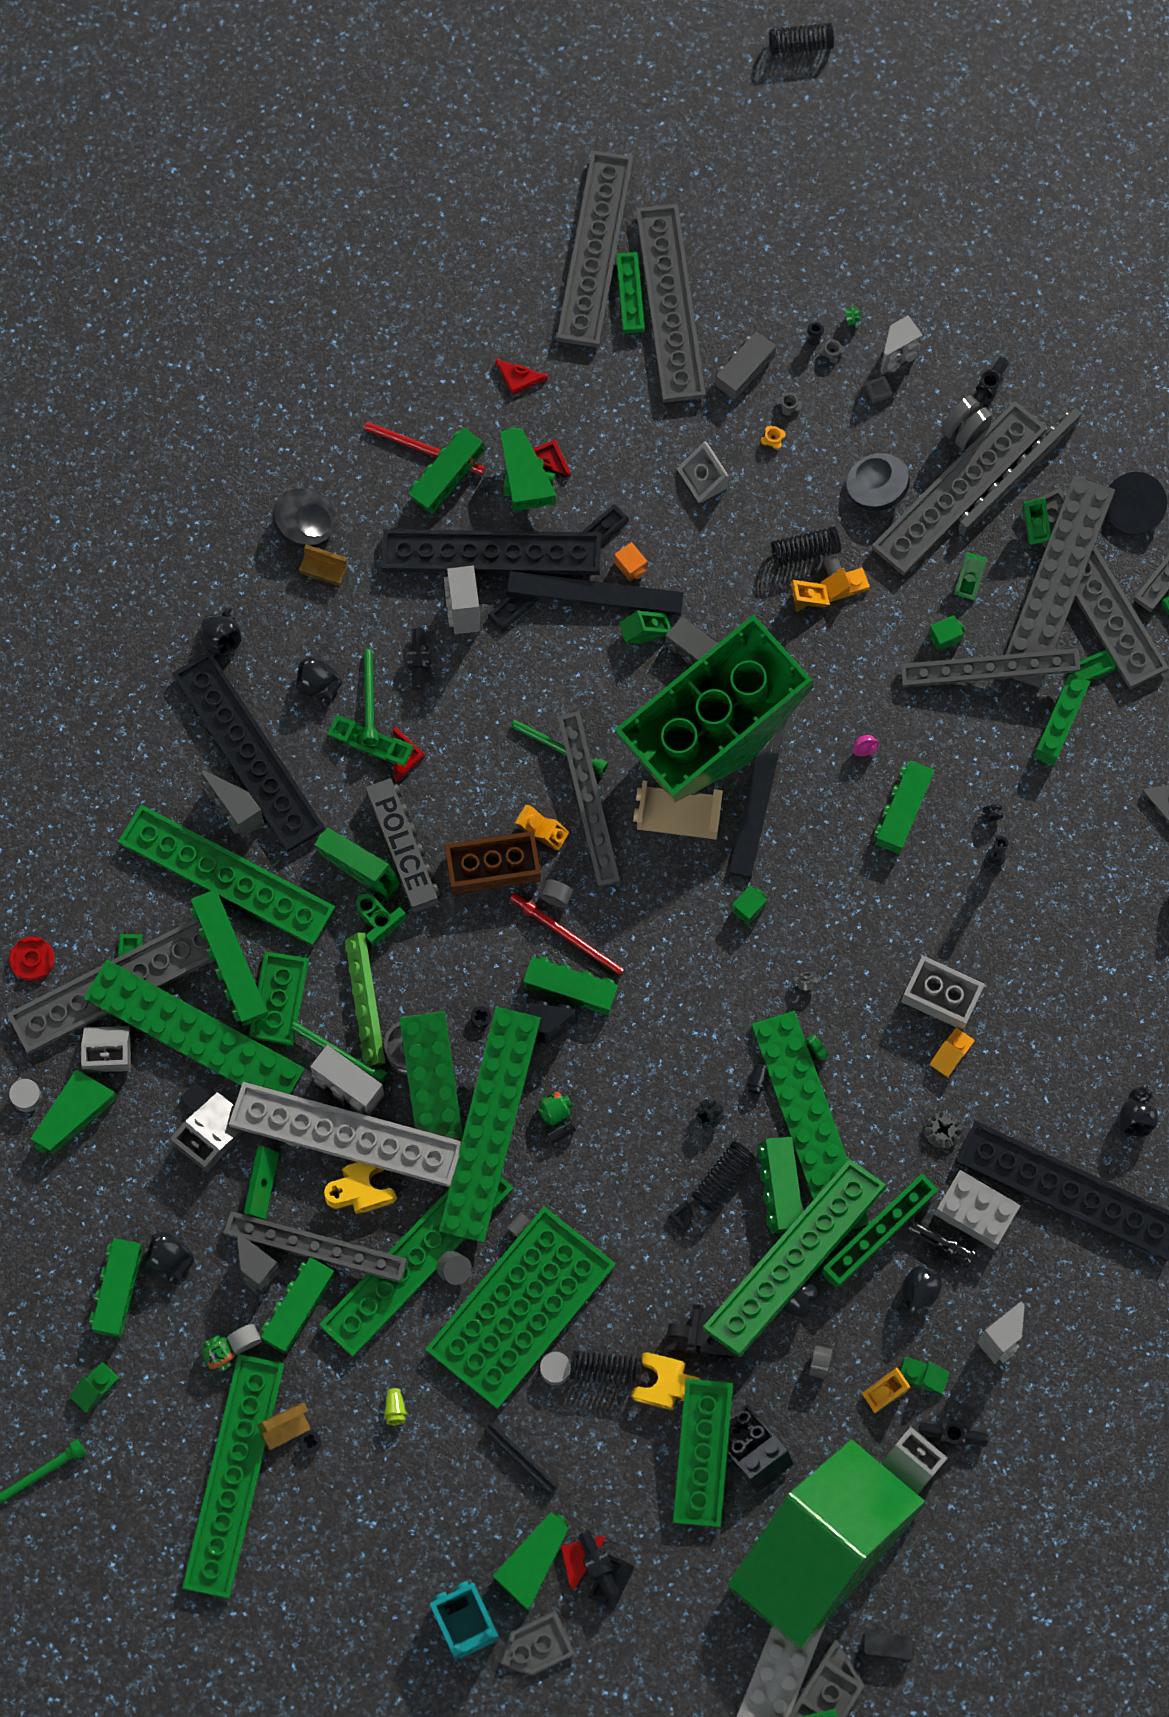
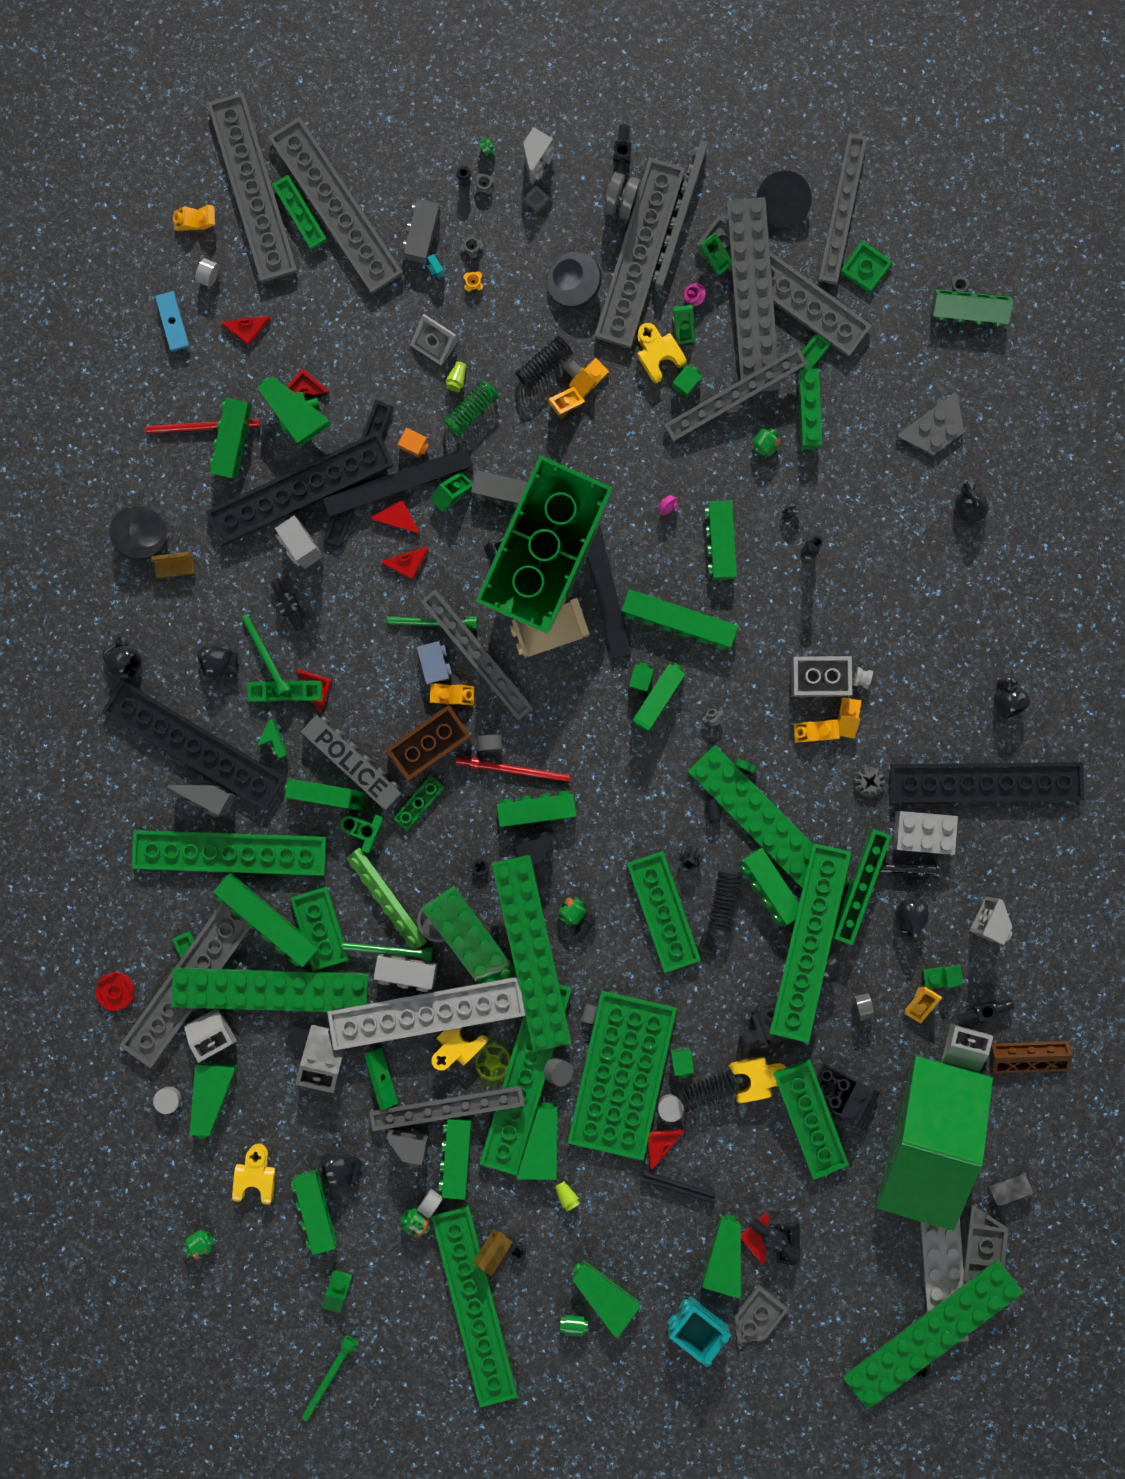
camera: 25 degrees left, 15 degrees up
(76, 1216) = (255, 1174): none -> yellow piece
(330, 1551) = (573, 1325): none -> green brick
(332, 779) = (272, 734): none -> green slope
(382, 1542) = (607, 1298): none -> green slope
(388, 1225) = (492, 1062): none -> clear neon green wheel
(394, 1340) = (540, 1153): none -> green slope
(437, 927) = (427, 794): none -> green tile
(449, 325) = (170, 311): none -> dark azure tile
(507, 305) = (207, 272): none -> light grey piece
(518, 250) = (194, 219): none -> light orange slope
(524, 1403) = (660, 1143): none -> red tile
(539, 786) = (433, 662): none -> sand blue brick
(563, 677) = (407, 563): none -> red tile
(576, 626) = (397, 516): none -> red tile
(592, 1325) = (682, 1062): none -> green brick
(652, 1157) = (663, 911): none -> green plate
(681, 566) = (453, 426): none -> green piece
(708, 520) = (456, 377): none -> lime cone
(740, 405) = (435, 267): none -> teal plate
(756, 932) = (658, 697): none -> green slope
(820, 865) = (679, 619): none -> green brick
(909, 1049) = (816, 731): none -> light orange slope
(930, 589) = (657, 349): none -> yellow piece
(980, 1503) = (1032, 1054): none -> reddish brown fence
(987, 1017) = (862, 678): none -> light grey wheel
(996, 553) = (694, 294): none -> dark pink hat
(1000, 731) = (766, 442): none -> green head

